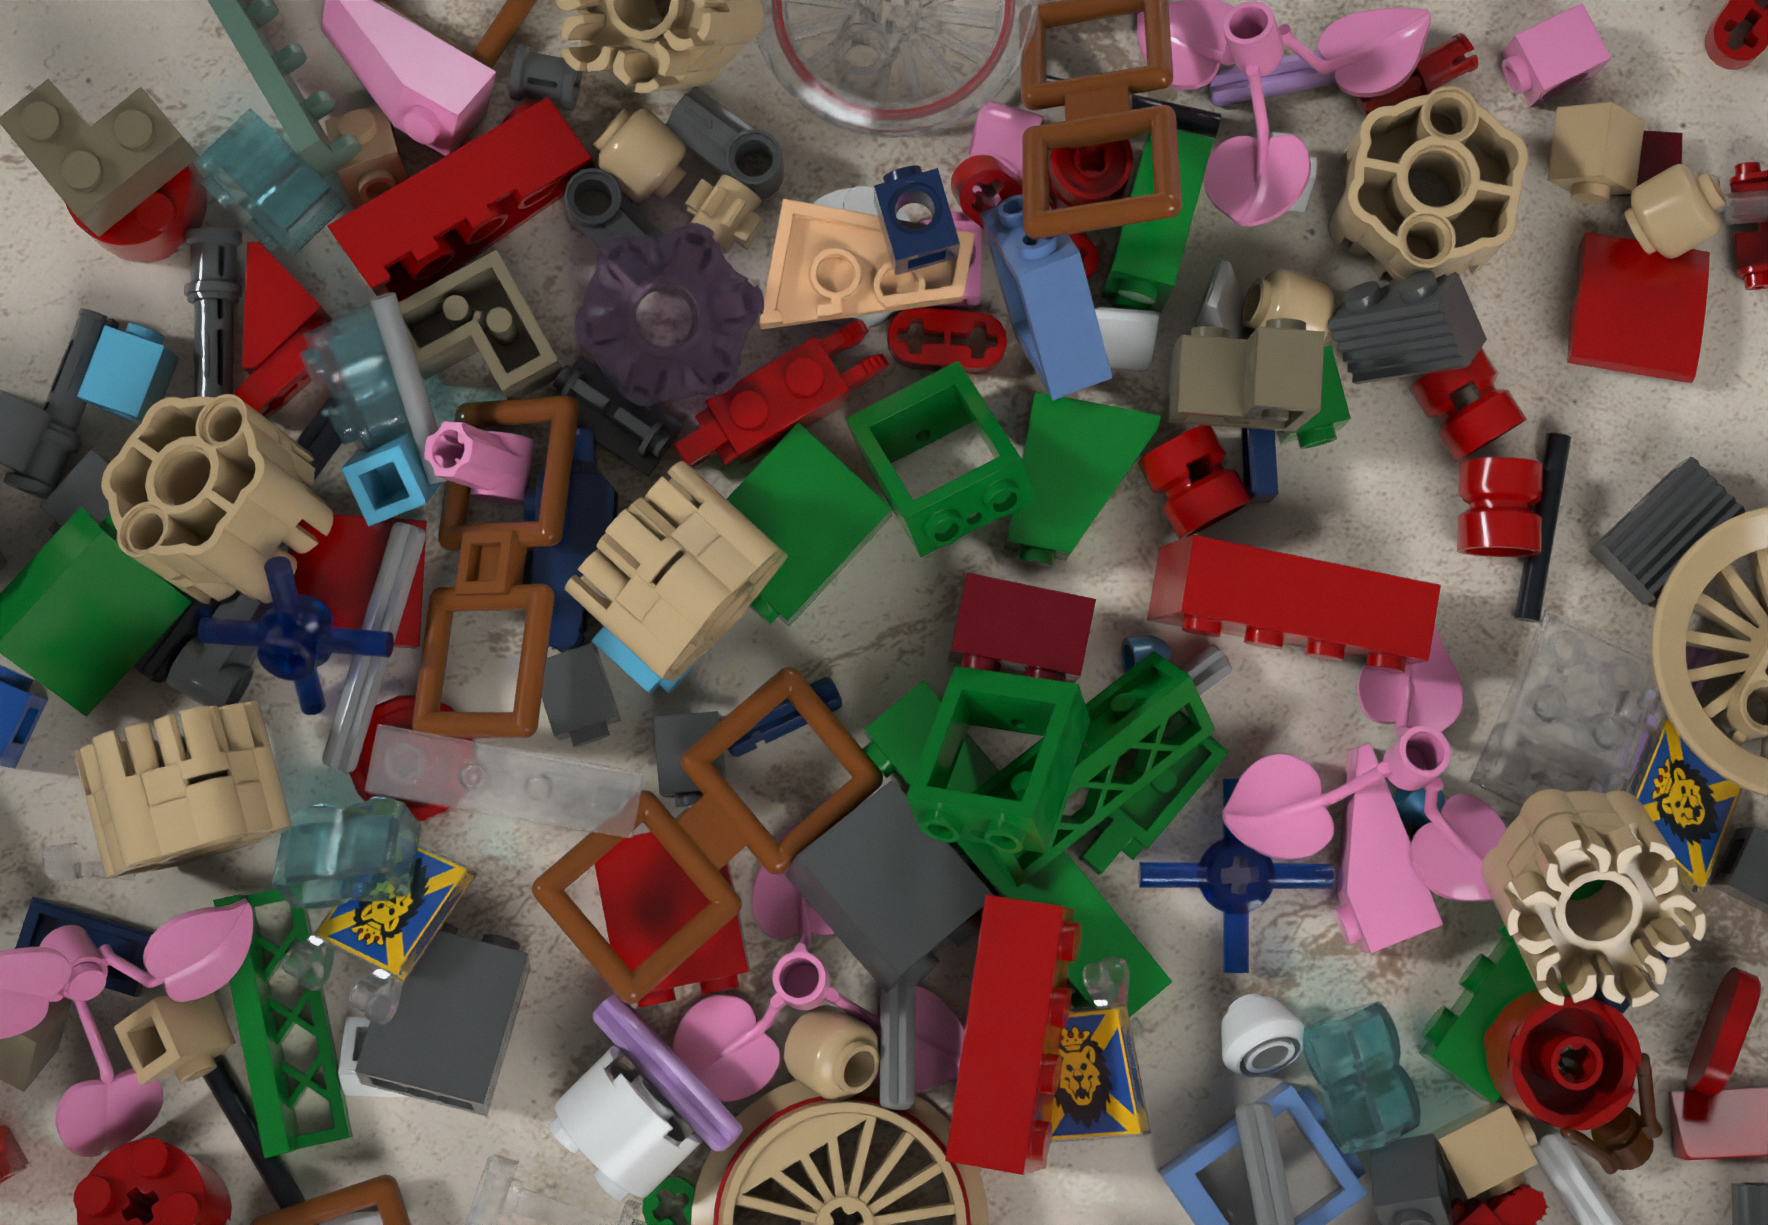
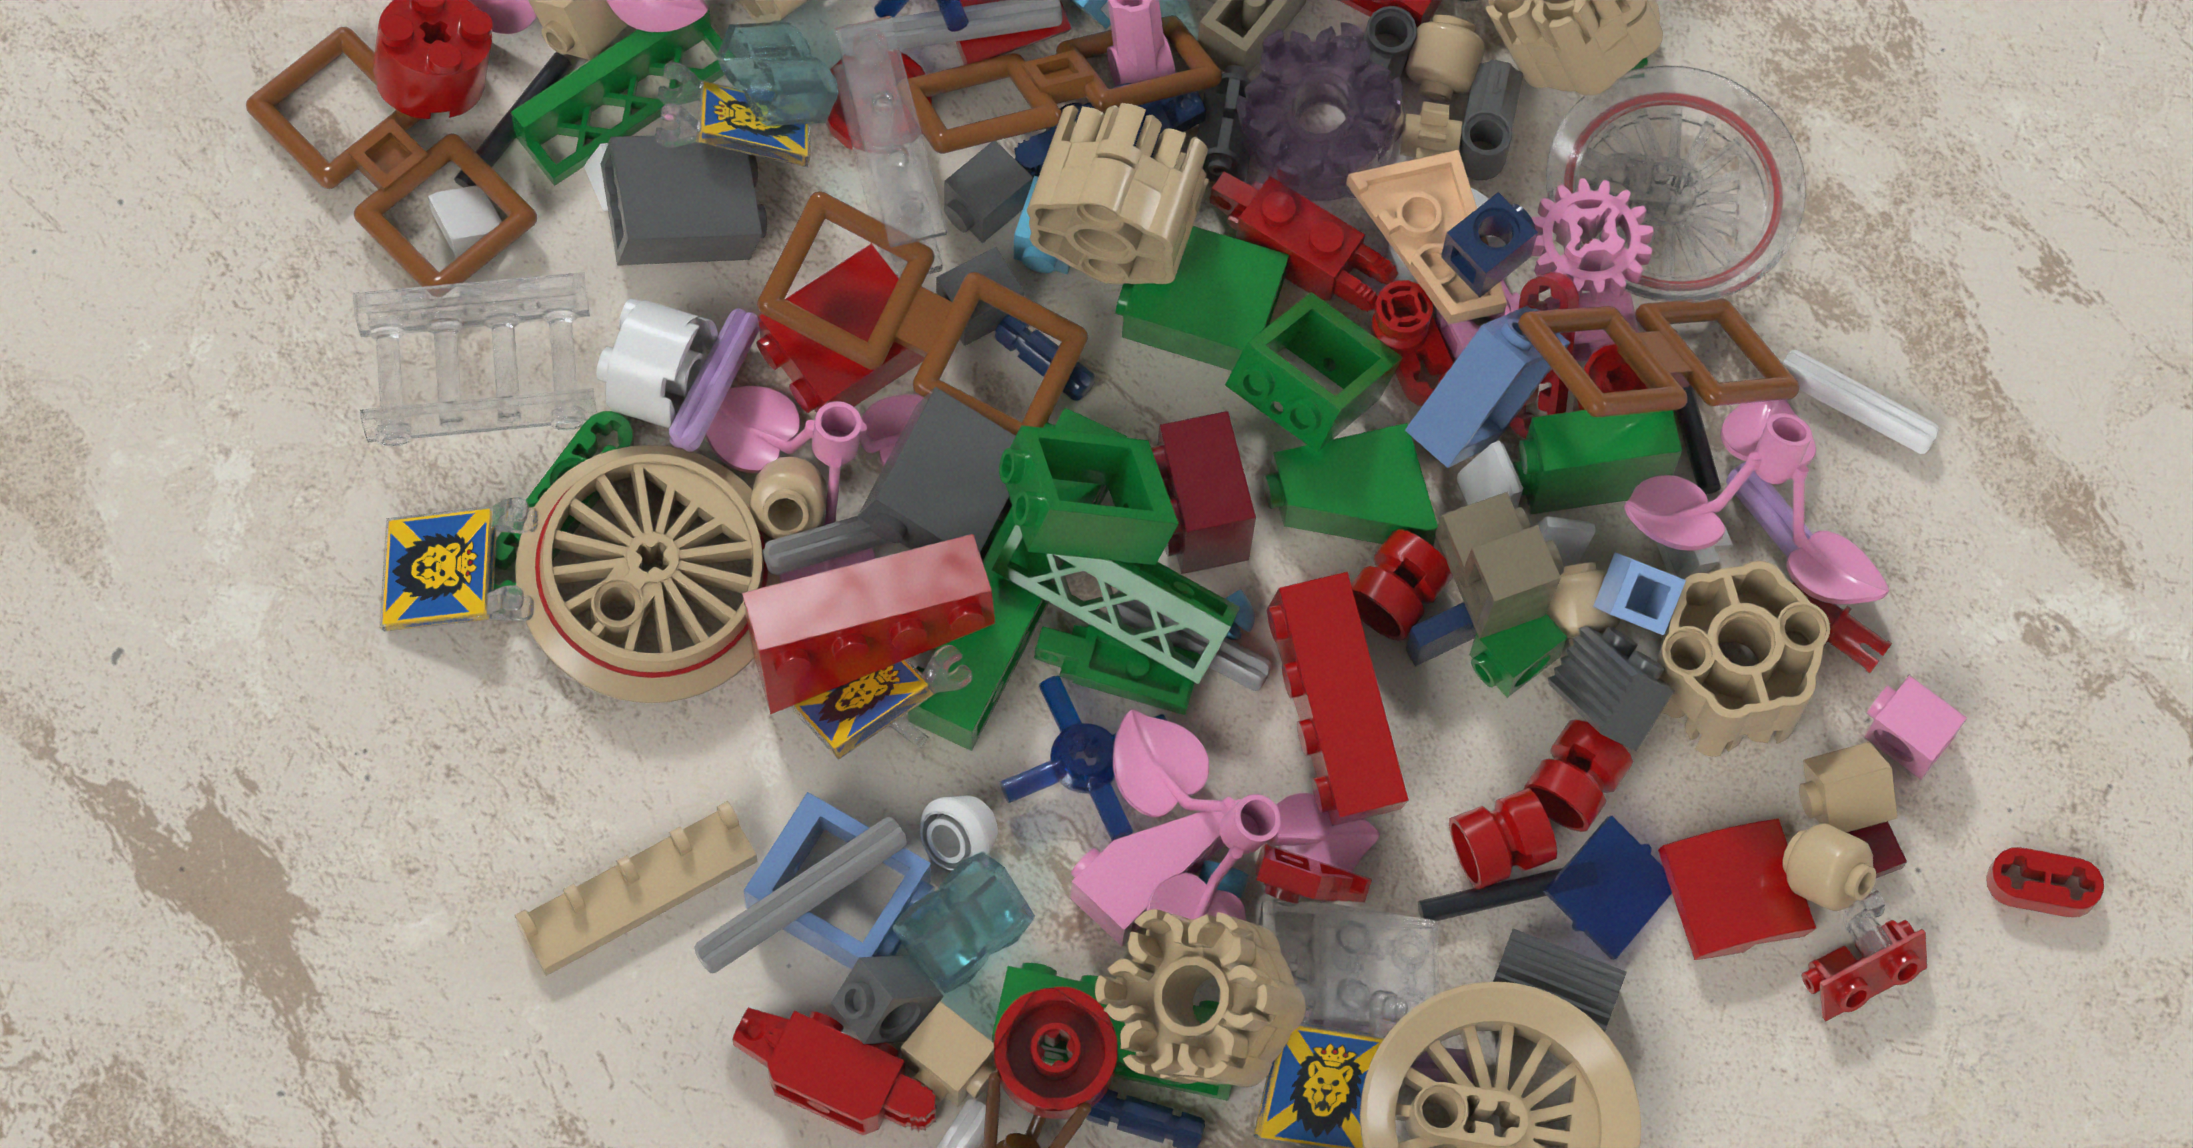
camera: 65 degrees right, 15 degrees down
(921, 352) = (1399, 328): none -> red wheel
(955, 99) = (1582, 217): none -> bright pink gear
(1337, 255) = (1639, 593): none -> light blue brick
(1478, 721) = (1293, 875): none -> red wing
(1585, 426) = (1610, 887): none -> clear blue piece

